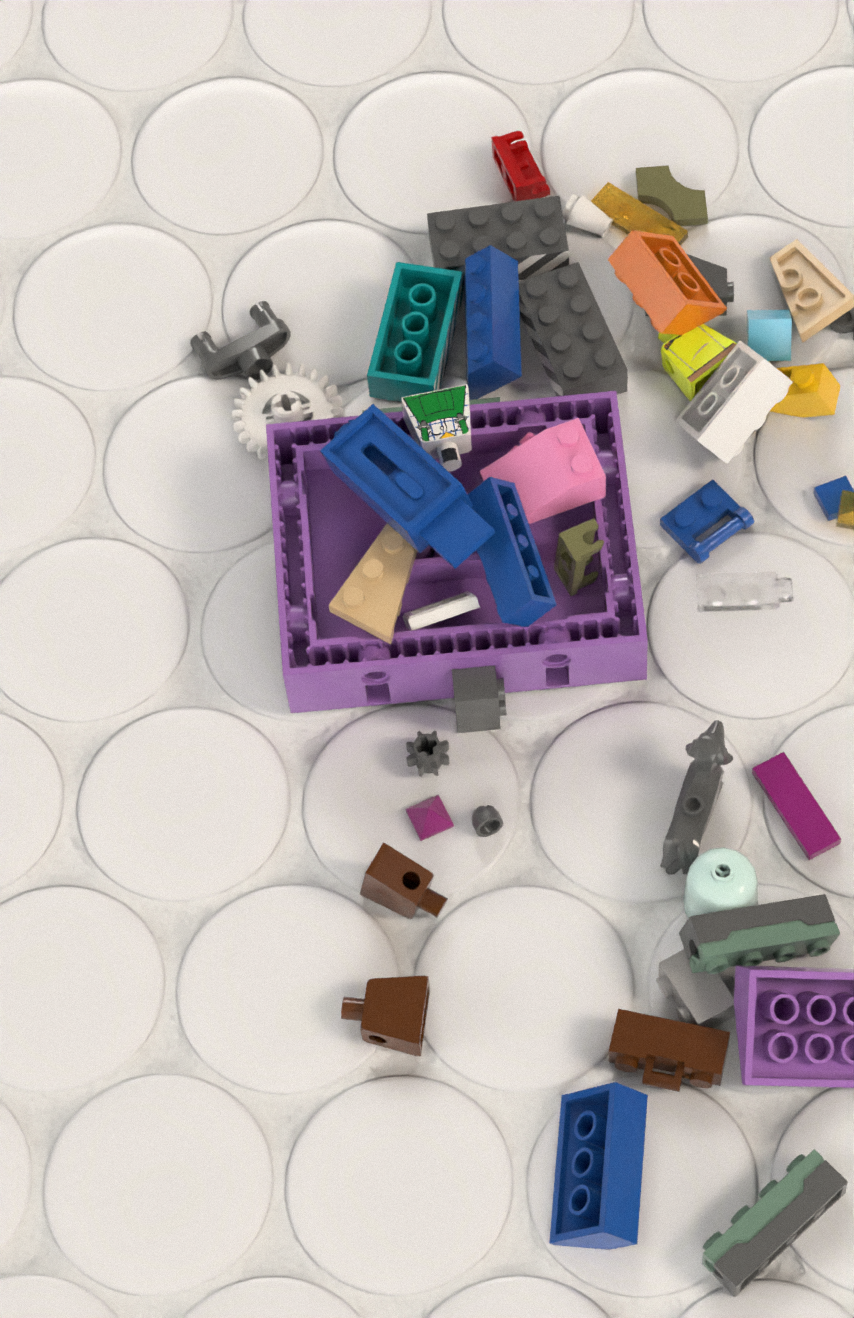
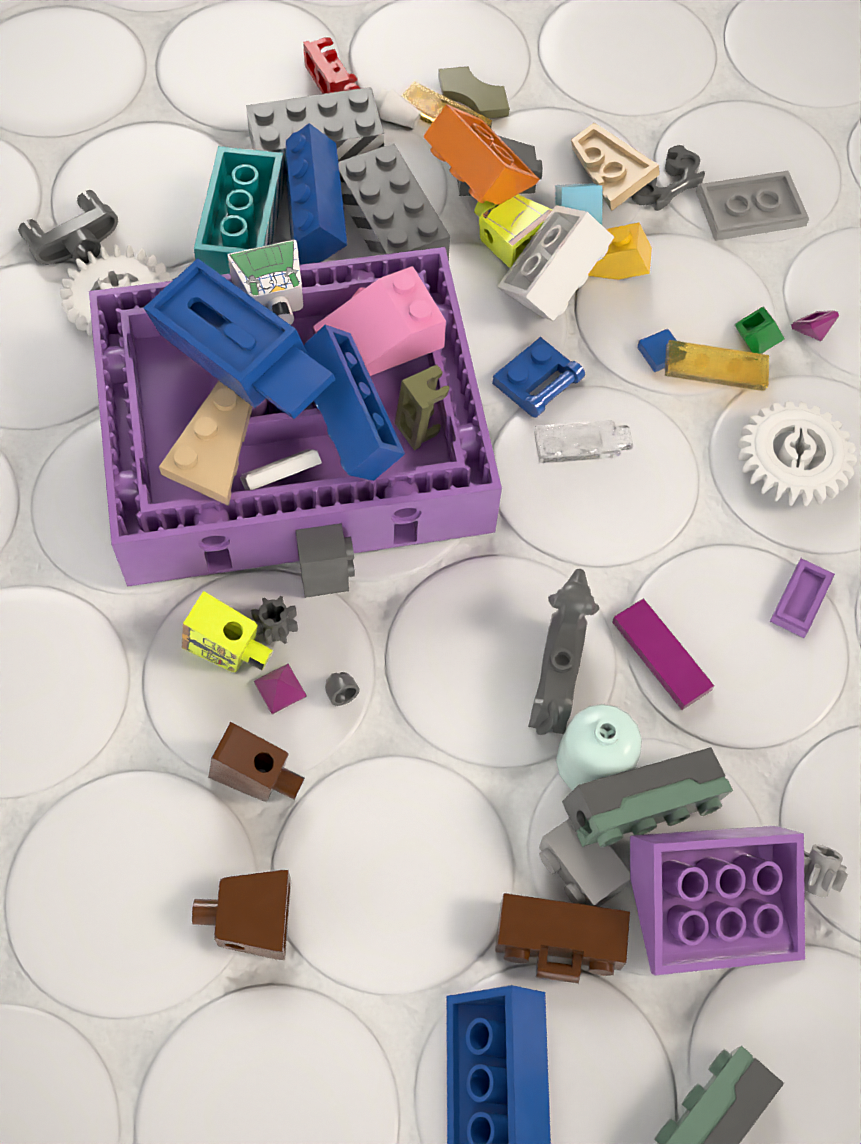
camera: 15 degrees left, 0 degrees up
(379, 765) = (222, 635): none -> neon yellow torso

